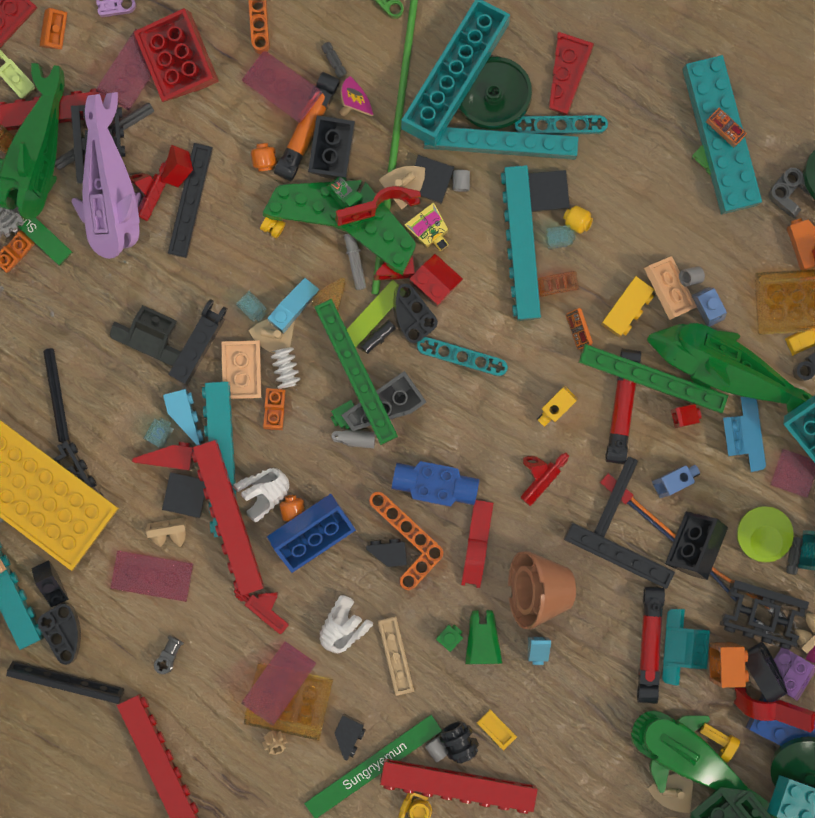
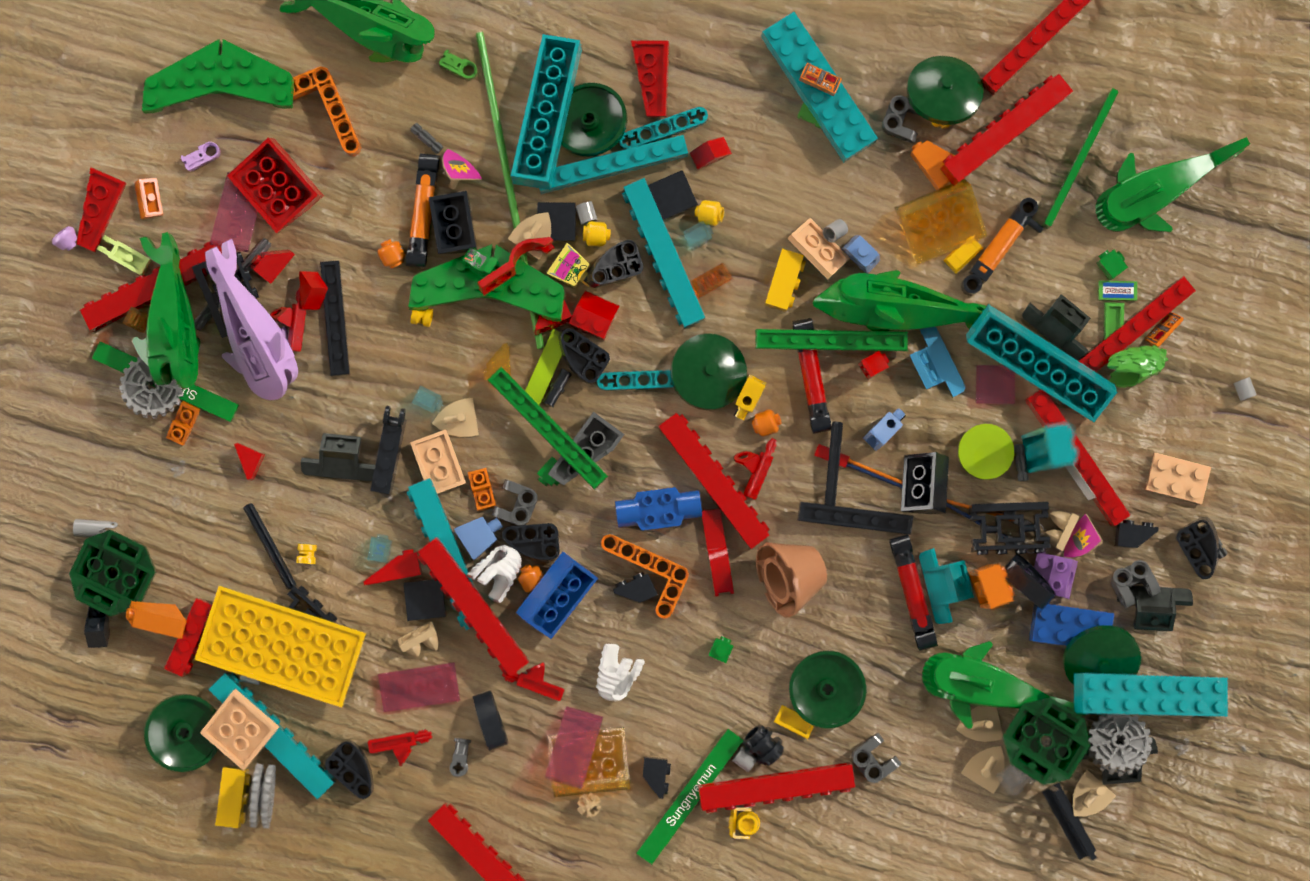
camera: 20 degrees left, 0 degrees up
(49, 583) = (324, 727): black slope -> none
(64, 307) = (249, 459): none -> red slope
(65, 682) = (371, 815): black tile -> none
(88, 414) = (306, 553): none -> yellow wheel
(115, 623) = (399, 744): none -> red piece
(147, 128) = (271, 263): none -> red slope
(180, 409) = (392, 520): medium azure slope -> none
(208, 631) = (490, 720): none -> black beam
(256, 451) = (478, 535): none -> medium blue torso
(282, 86) = (385, 180): clear pink tile -> none
(285, 367) = (479, 446): white piece -> none
(292, 305) = (466, 385): medium azure slope -> none
(304, 436) = (519, 505): none -> dark grey piece
(307, 480) = (537, 546): none -> black beam
(355, 262) = (511, 323): light grey axle -> none
(355, 438) = (568, 491): light grey piece -> none
(396, 656) = (676, 684): tan tile -> none
(463, 203) = (596, 234): none -> yellow head
(475, 234) = (616, 259): none -> black beam
(483, 640) = (753, 642): green piece -> none
(496, 474) = (714, 481): none -> red brick
(526, 369) = (708, 371): none -> dark green dish
(538, 650) = (809, 633): medium azure slope -> none
(538, 709) = (827, 689): none -> dark green dish
(556, 793) = (871, 762): none -> dark grey piece
(565, 436) = (766, 423): none -> orange head
(579, 328) = (745, 316): slope -> none
(597, 162) = (710, 152): none -> red slope
(728, 743) = (1018, 661): yellow piece -> none
(775, 710) = (1049, 614): red piece -> none

